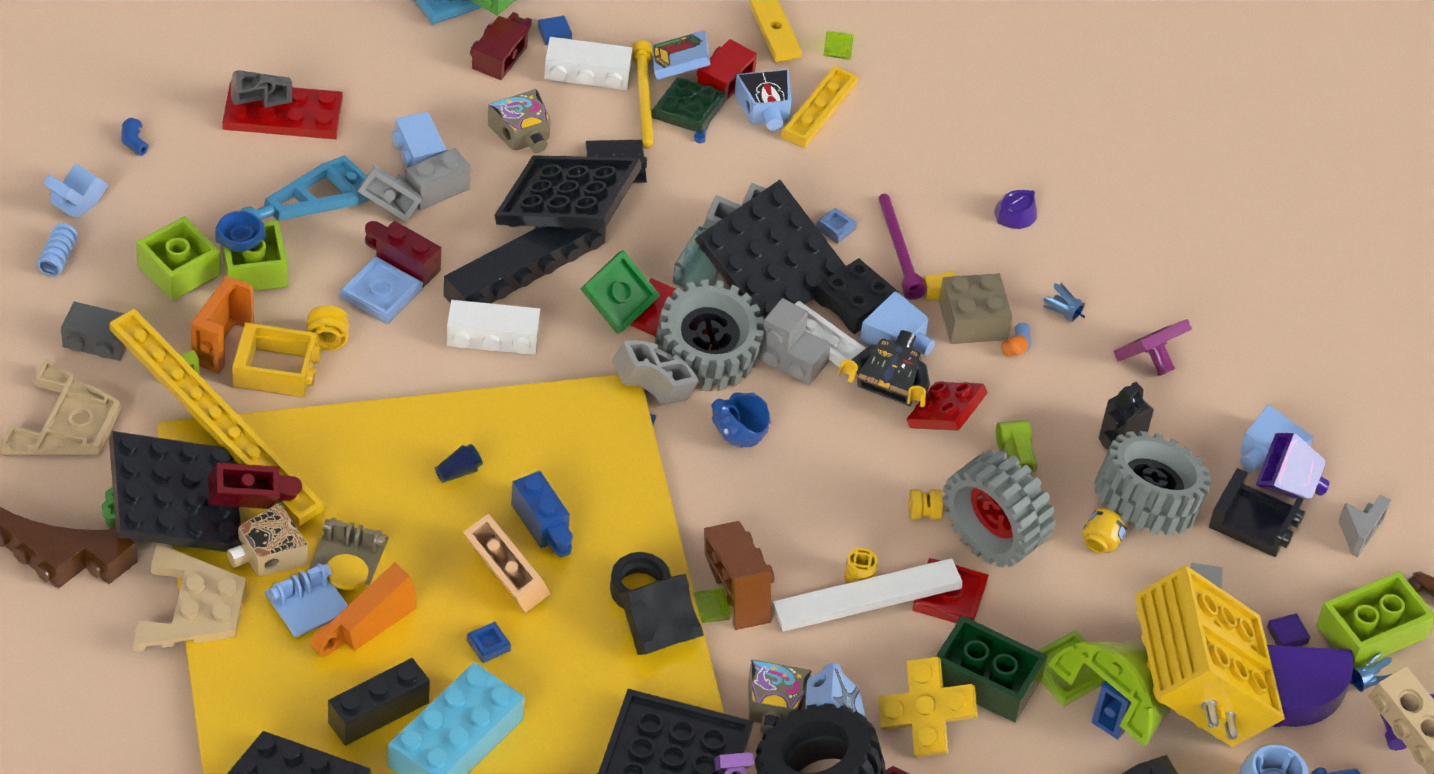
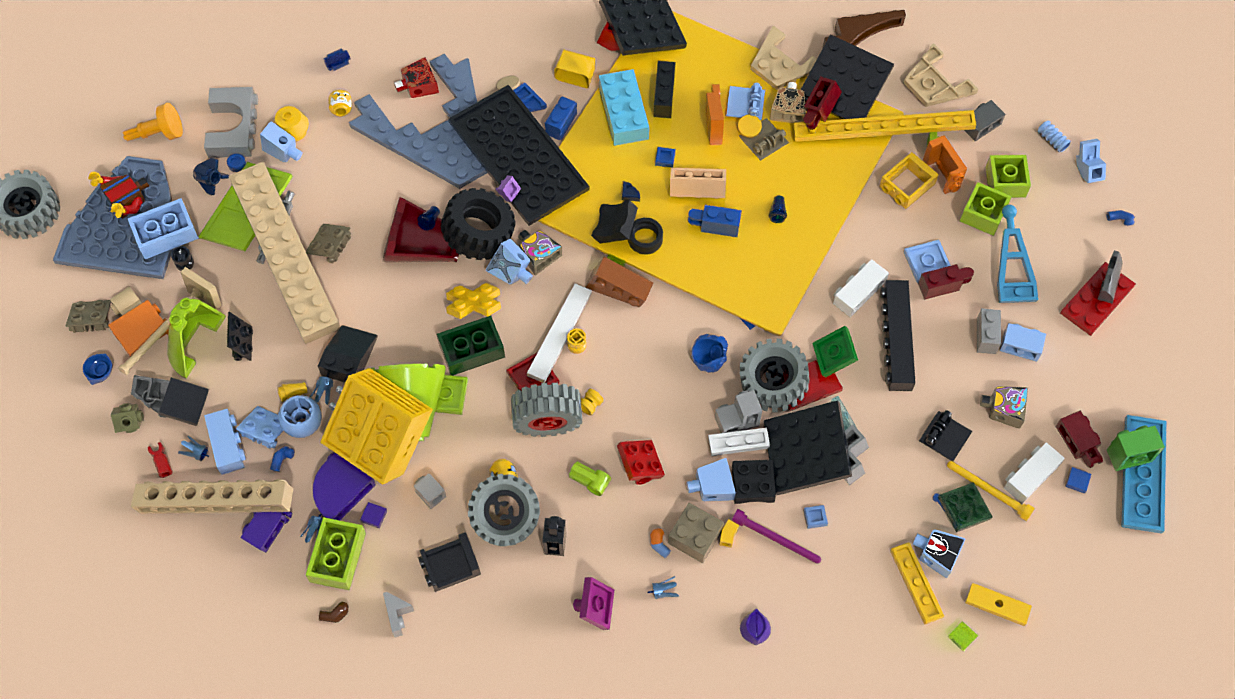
camera: 135 degrees right, 15 degrees up
(239, 231) = (997, 194): blue hat -> none
(330, 325) = (912, 212): yellow wheel -> none
(390, 193) = (988, 299): light grey slope -> none
(568, 192) = (927, 377): black plate -> none
(586, 647) = (630, 192): none -> dark blue tile
(656, 371) = (774, 327): light grey brick -> none
(681, 54) = (1005, 524): light blue tile -> none
(725, 65) = (979, 545): red brick -> none
(890, 370) = (683, 449): torso -> none
(1261, 434) = (483, 613): light blue torso -> none
(1293, 468) = (453, 596): torso -> none

